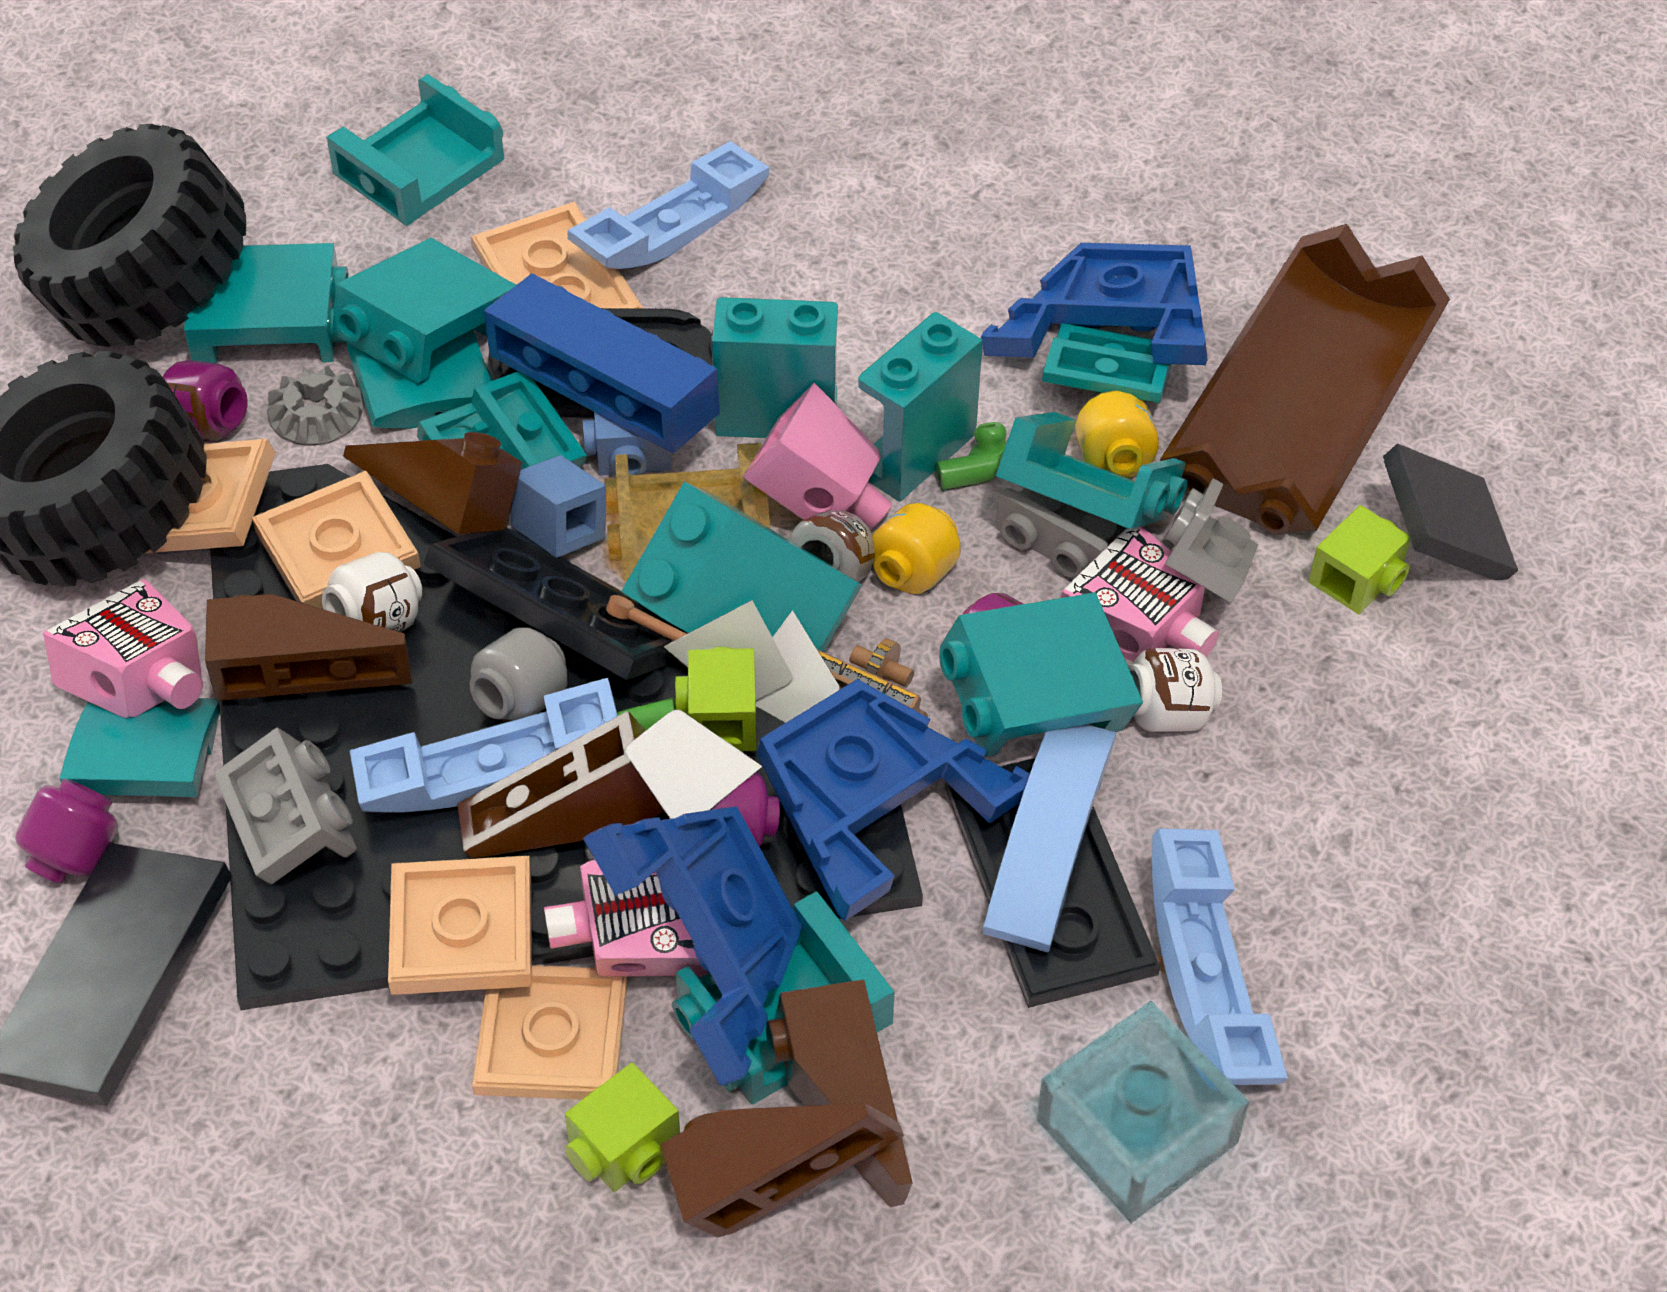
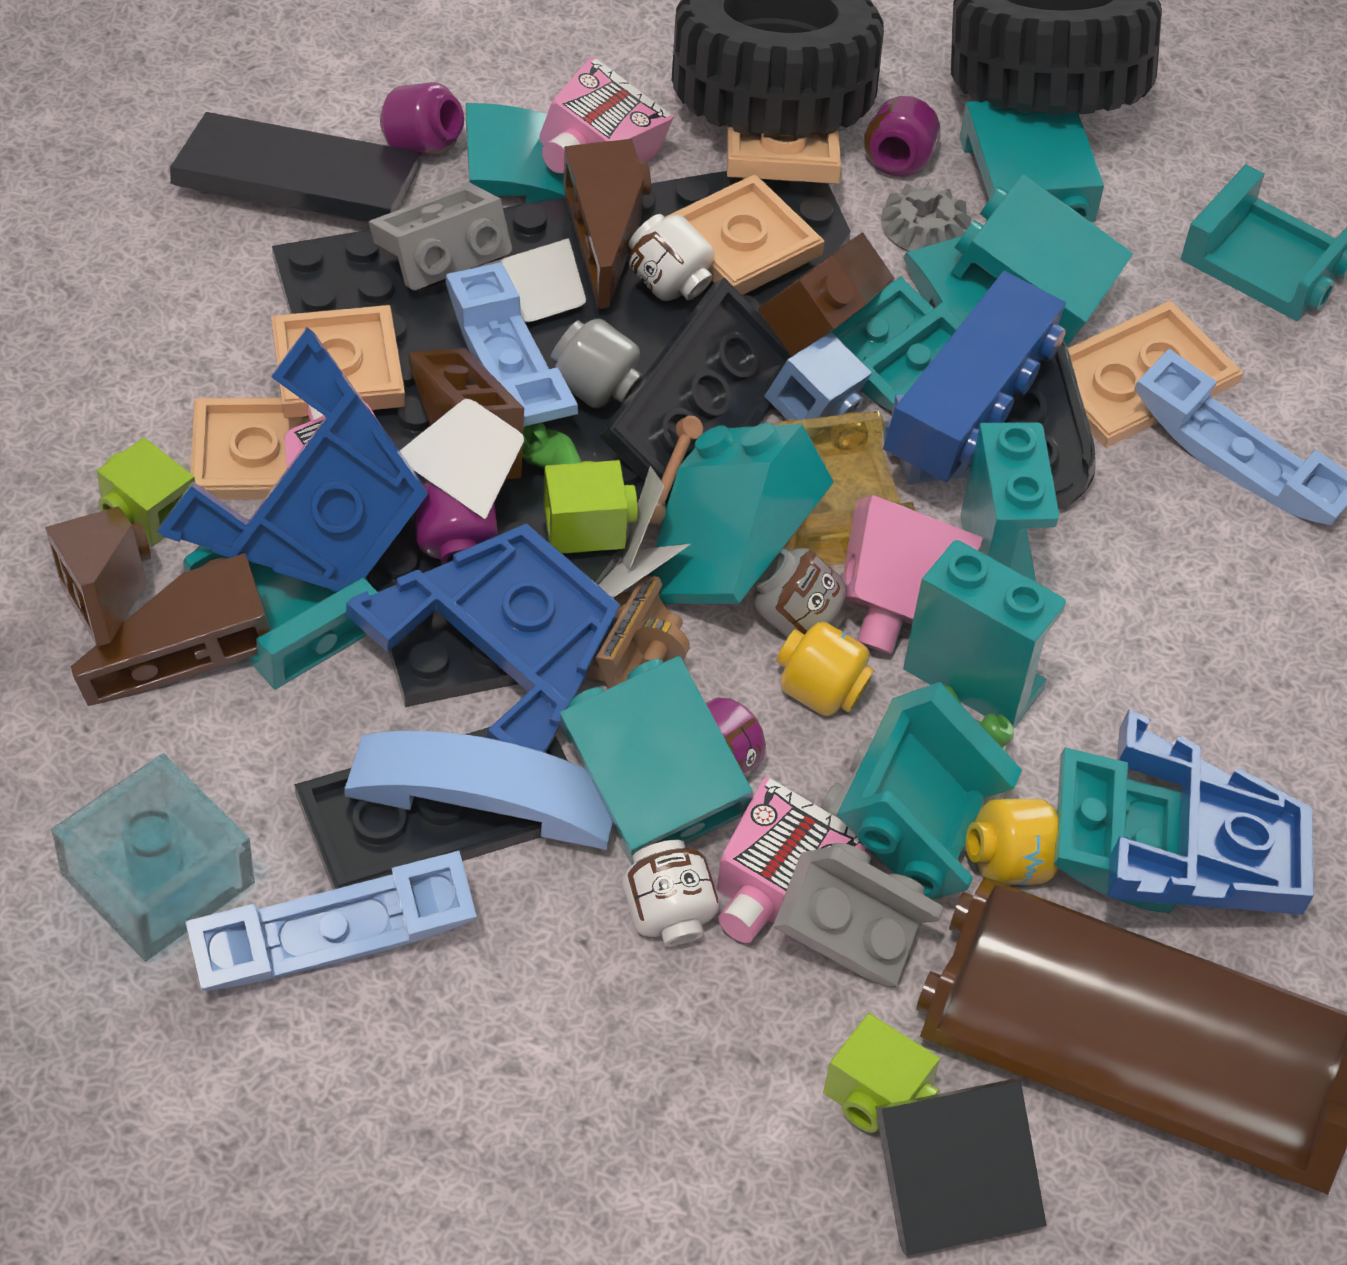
camera: 80 degrees right, 0 degrees up
(351, 723) = (545, 280): none -> white sticker

